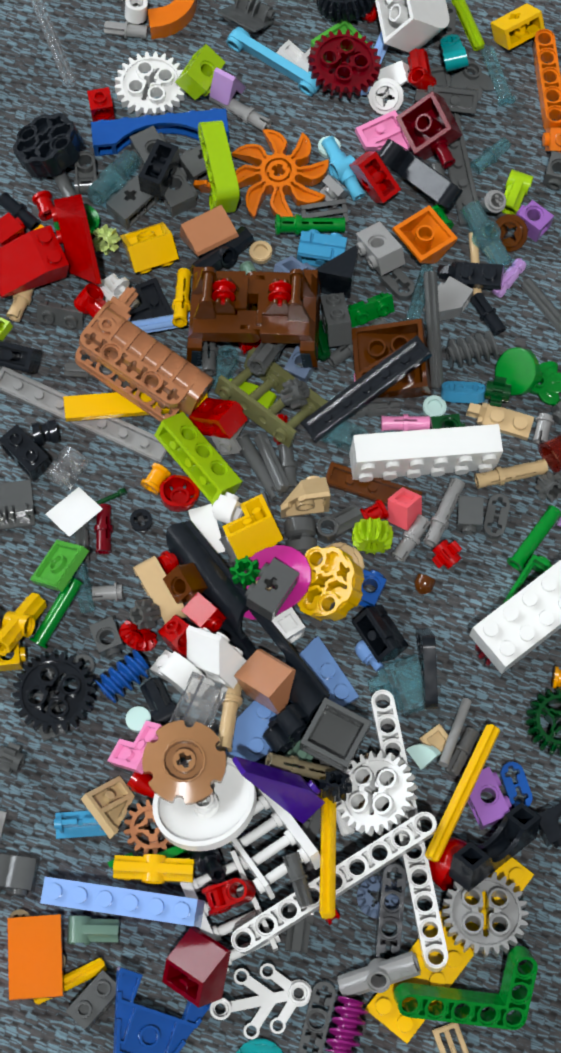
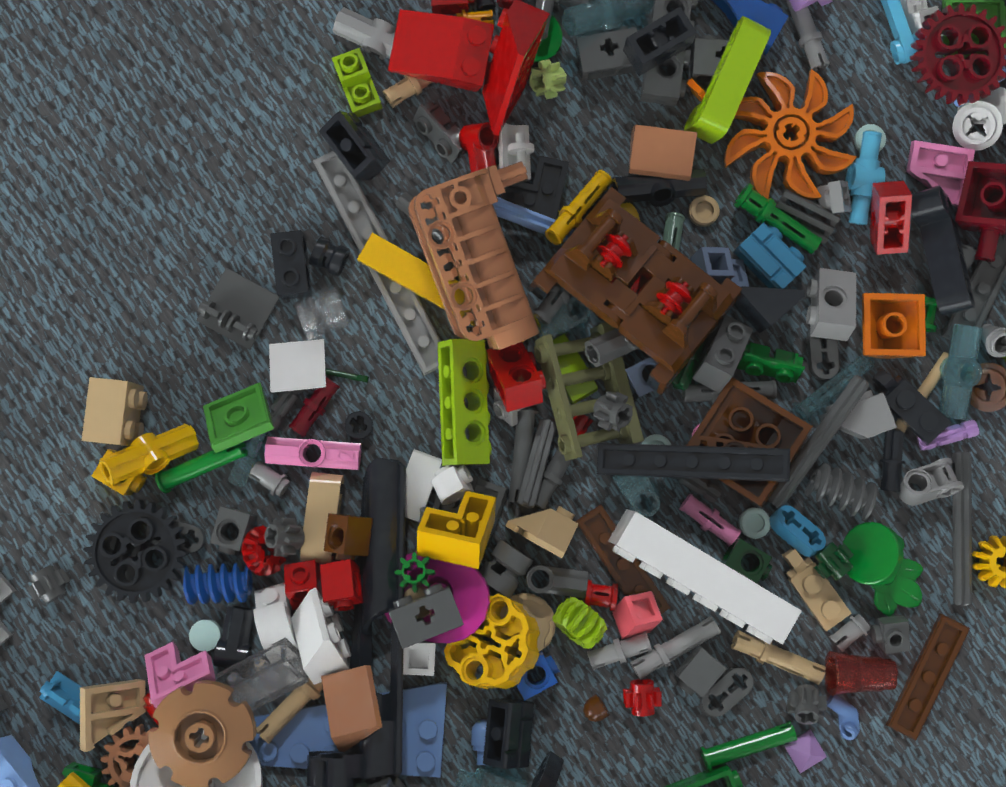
camera: 30 degrees right, 15 degrees up
(111, 564) = (293, 452): none -> bright pink piece
(150, 247) = (588, 121): yellow slope -> none
(155, 478) = (405, 390): light orange bush -> none
(168, 561) = (352, 493): red plate -> none
(179, 498) = (416, 426): red helmet -> none
(519, 310) = (935, 481): none -> light grey piece

